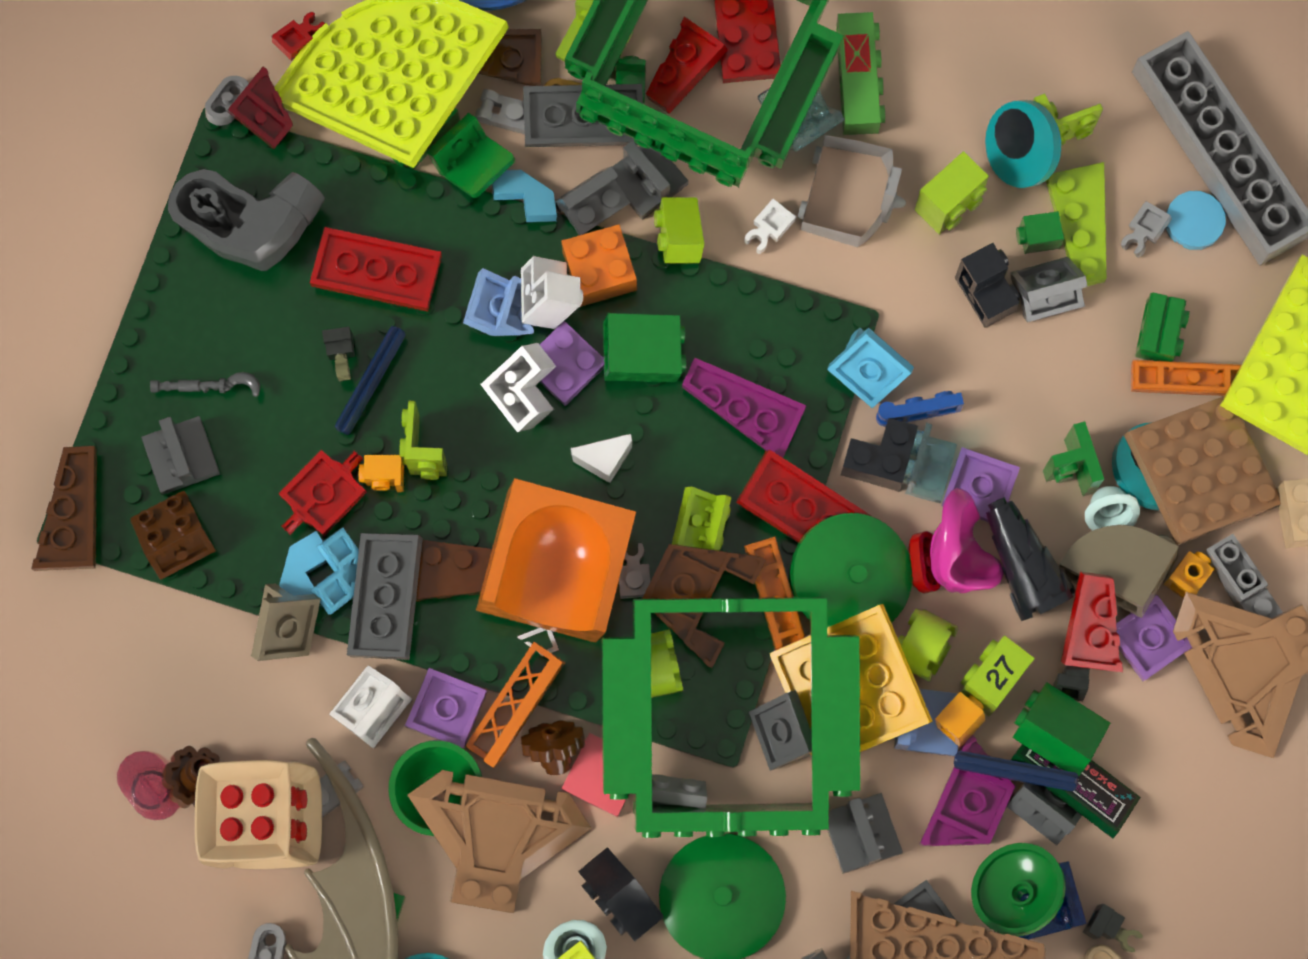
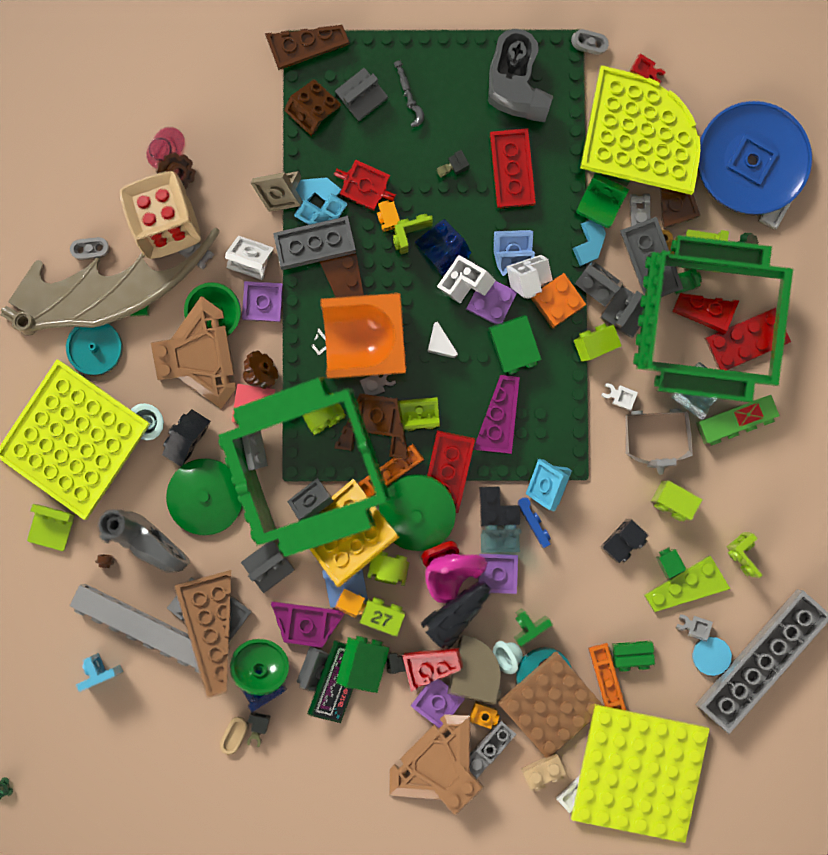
camera: 70 degrees right, 10 degrees up
(262, 110) = (589, 64): dark red wing -> none
(370, 380) = (443, 189): dark blue axle -> none
(457, 406) = (442, 246): none -> clear blue bracket
(523, 712) = (272, 346): orange fence -> none
(1016, 771) = (327, 645): dark blue axle -> none
(1023, 143) = (722, 535): teal piece -> none
(1049, 288) = (636, 578): dark grey bracket -> none

